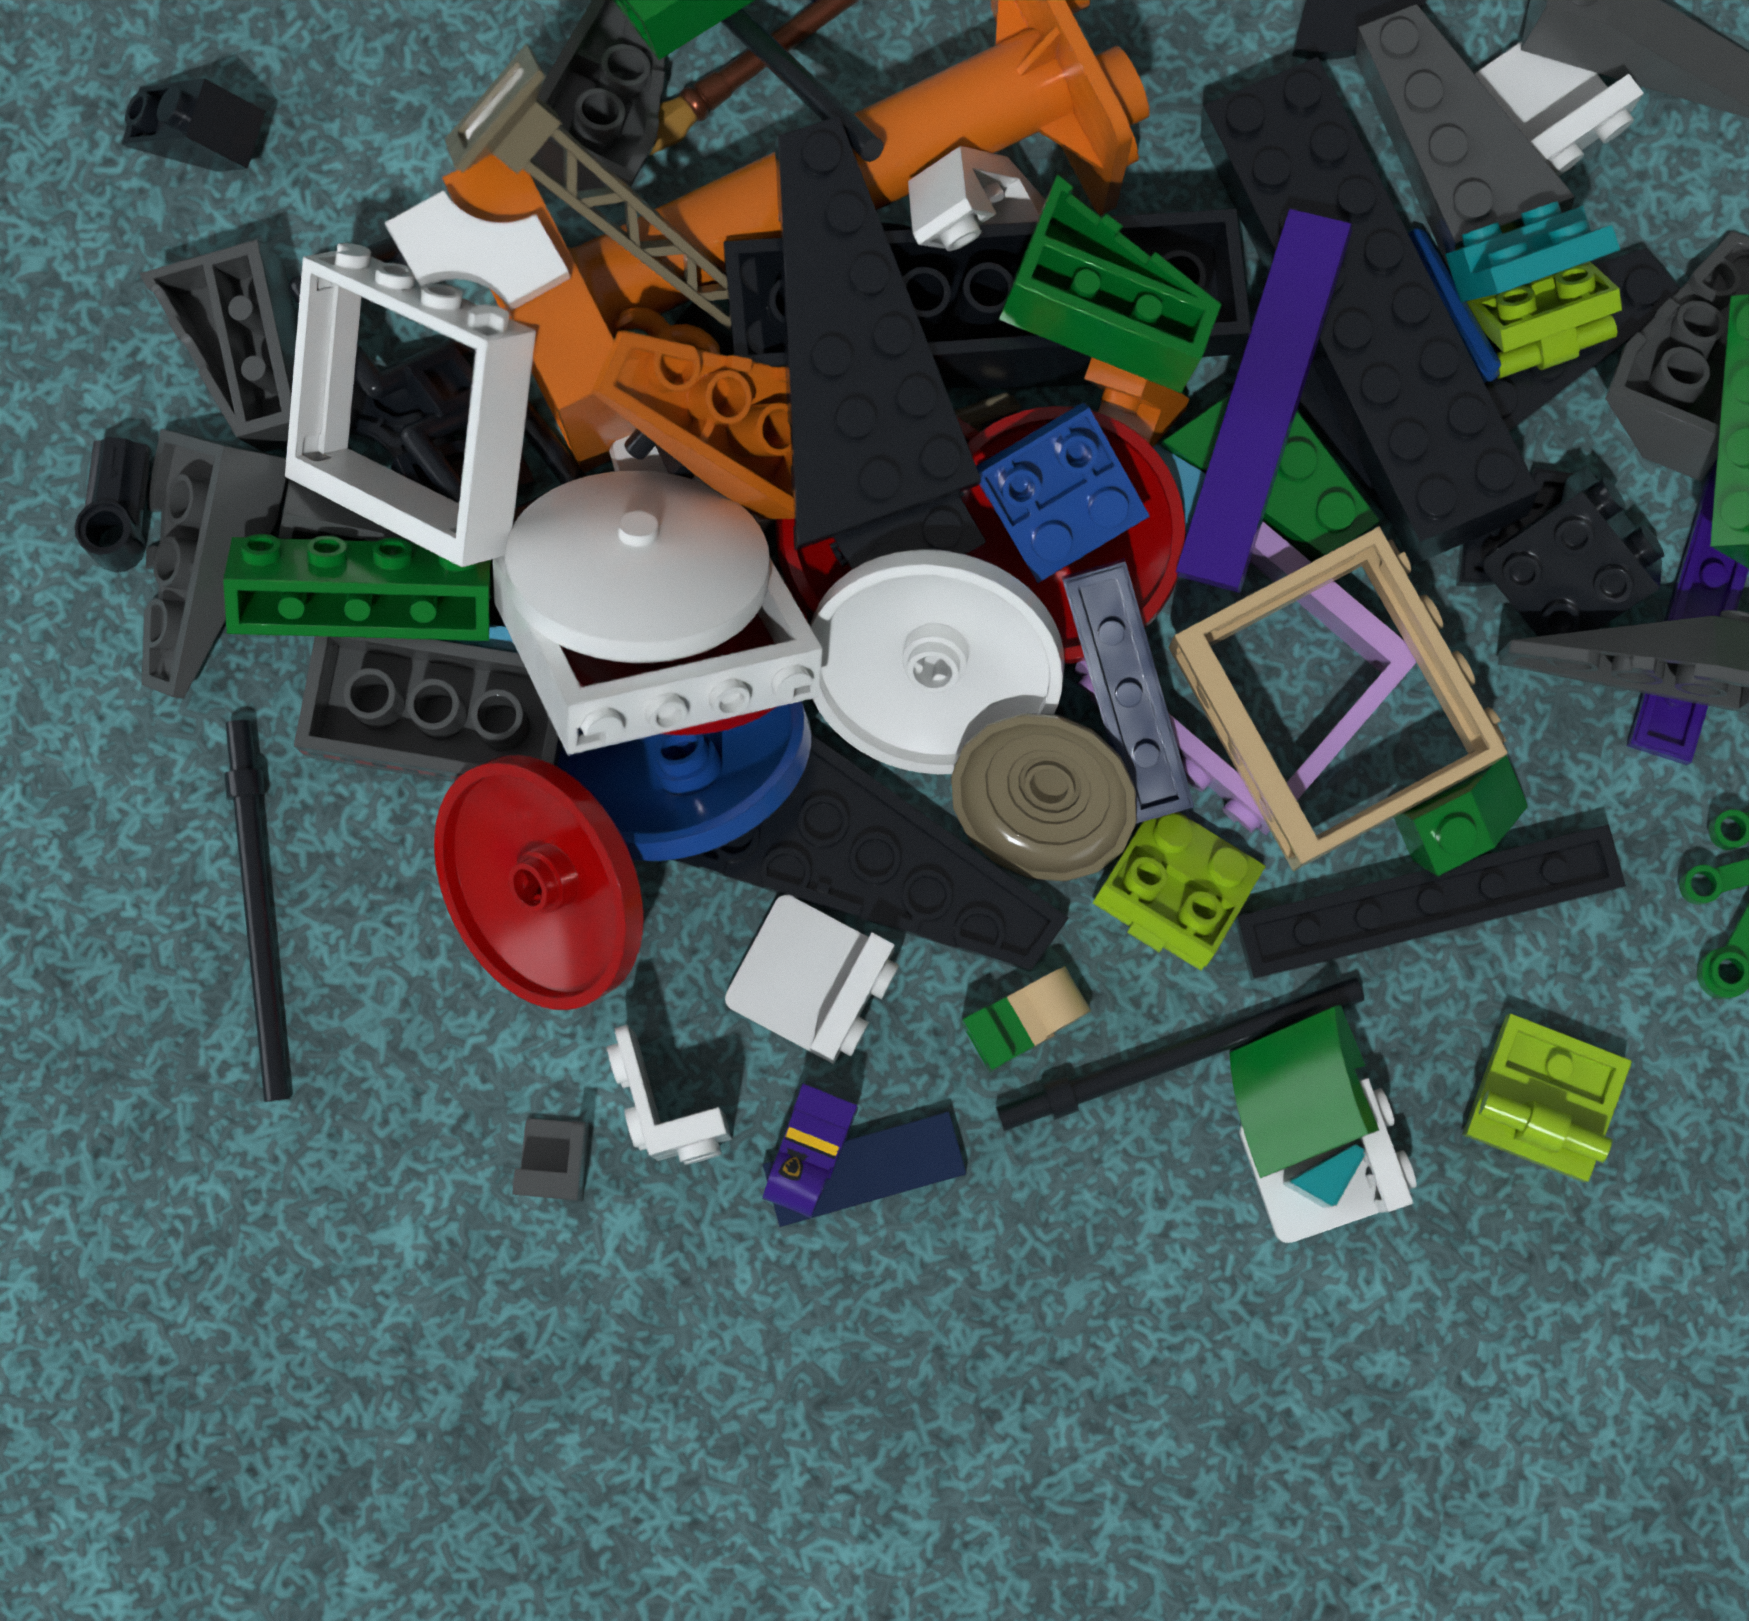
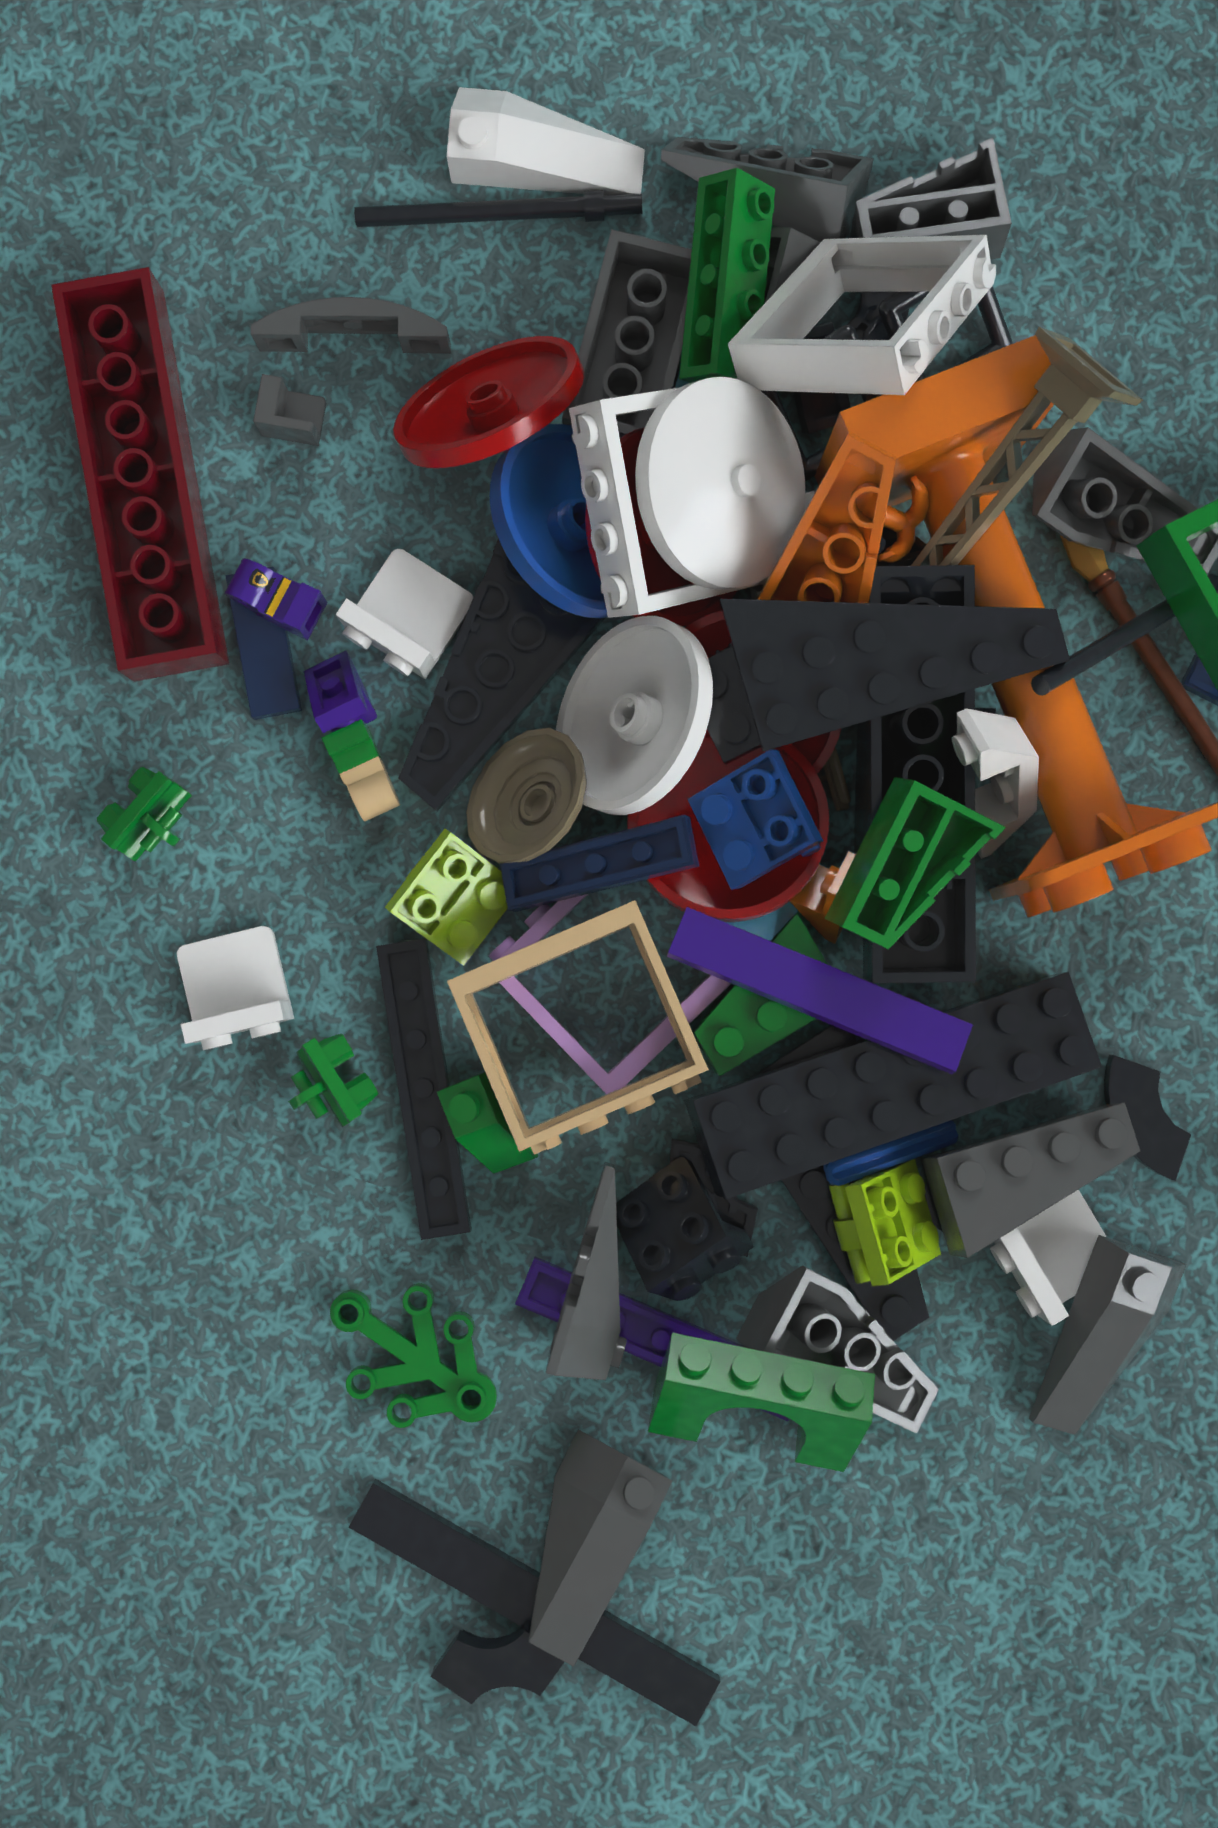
camera: 95 degrees right, 5 degrees up
(115, 499) = (821, 119): black piece -> none
(166, 879) = (522, 145): none -> white wedge
(193, 124) = (1112, 193): black slope -> none
(430, 1004) = (289, 327): none -> dark grey slope
(450, 244) = (982, 329): white tile -> none
(656, 1348) = (140, 475): none -> dark red brick
(691, 1137) = (309, 477): white bracket -> none
(926, 1061) = (337, 694): none -> dark purple slope
(1062, 1096) = (303, 795): black bar -> none
(1116, 1292) = (147, 817): none -> green hips
(1301, 1092) = (282, 970): green slope -> none
(1329, 1178) = (216, 983): teal slope -> none
(1442, 1030) = (343, 1099): none -> green hips
(1542, 247) = (919, 1212): teal plate -> none
(1547, 1098) = (265, 1162): lime plate -> none

